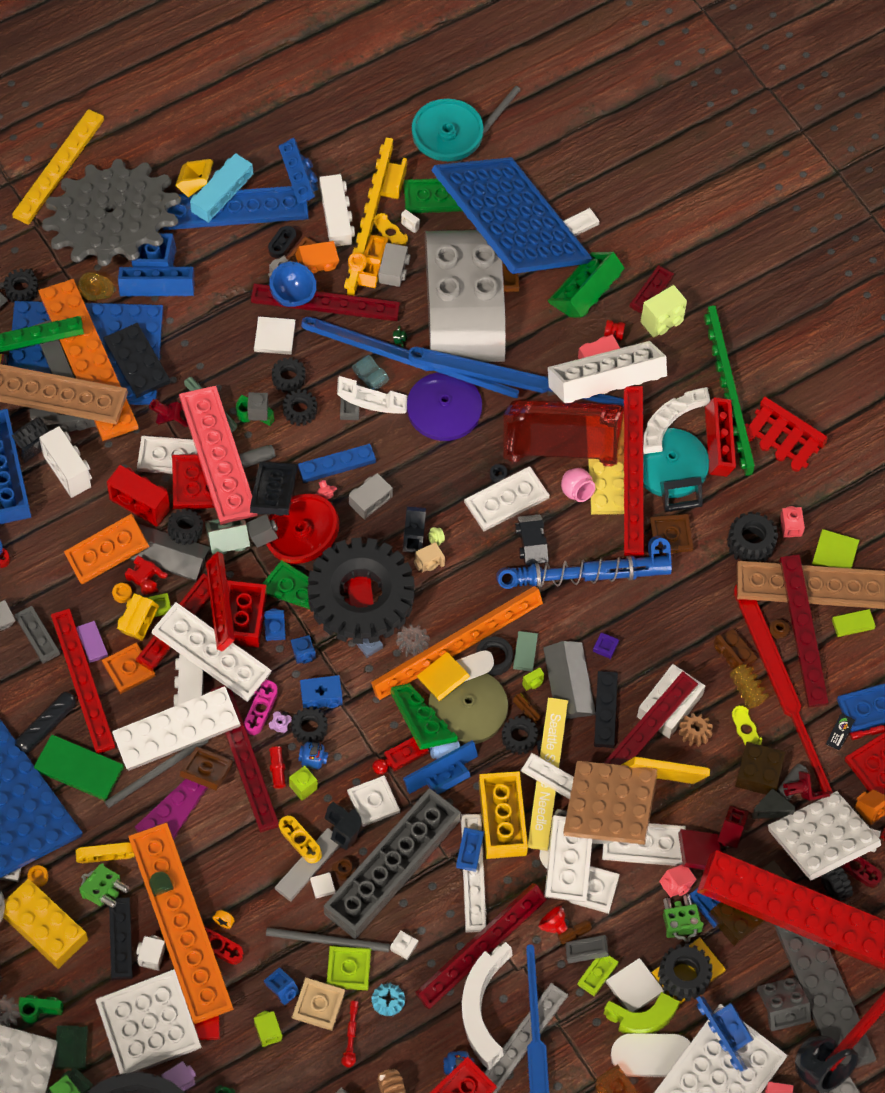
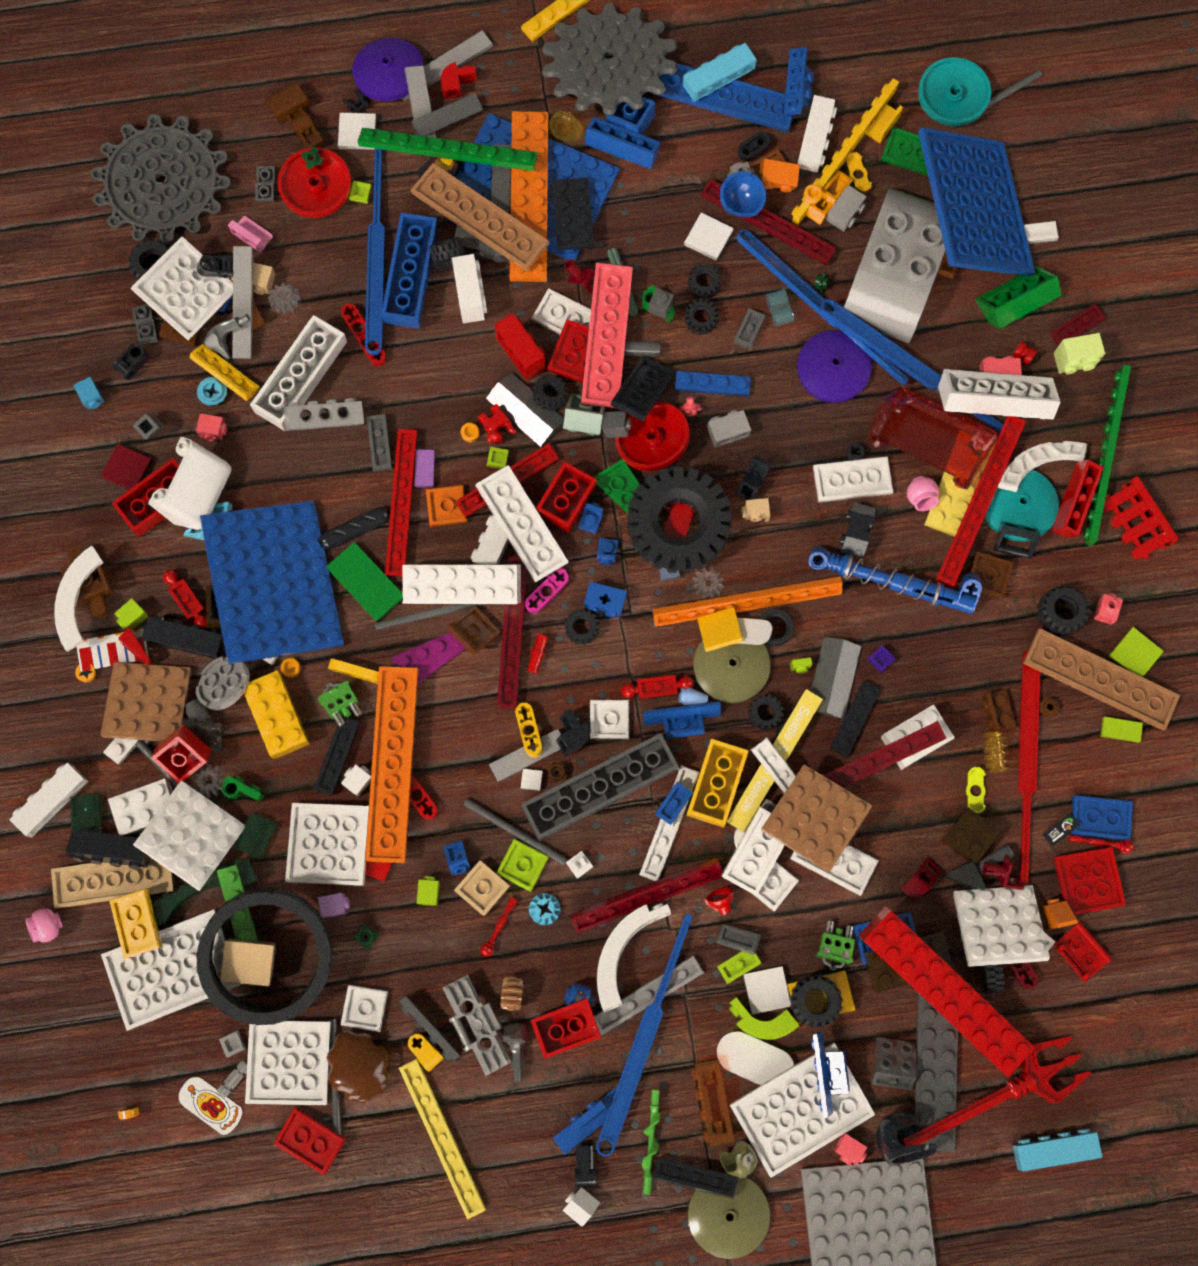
camera: 25 degrees right, 15 degrees up
(21, 277) = (500, 91): black tyre -> none
(106, 549) = (472, 386): orange tile -> none
(137, 616) = (472, 462): yellow brick -> none
(160, 883) = (387, 722): clear green tile -> none
(189, 179) = (693, 51): yellow tile -> none
(220, 601) = (548, 479): red tile -> none
(224, 919) = (432, 775): light orange tile -> none
(283, 727) = (557, 607): lavender plate -> none
(303, 783) = (553, 678): lime brick -> none
(312, 755) = (572, 656): blue head -> none
(371, 399) = (768, 333): white slope -> none
(410, 221) = (880, 171): white tile -> none
(420, 719) = (683, 667): green wing -> none
(436, 535) = (772, 491): yellowish green plate -> none
(523, 705) = (782, 685): reddish brown piece -> none
(525, 651) = (806, 633): sand green tile -> none
(577, 930) = (739, 916): reddish brown piece -> none
(671, 770) = (881, 805): yellow tile -> none
(677, 881) = (848, 911): coral brick -> none
(697, 735) = (933, 769): medium nougat gear -> none
(697, 847) = (880, 889): dark red tile -> none
(803, 631) = (1070, 720): dark red plate -> none

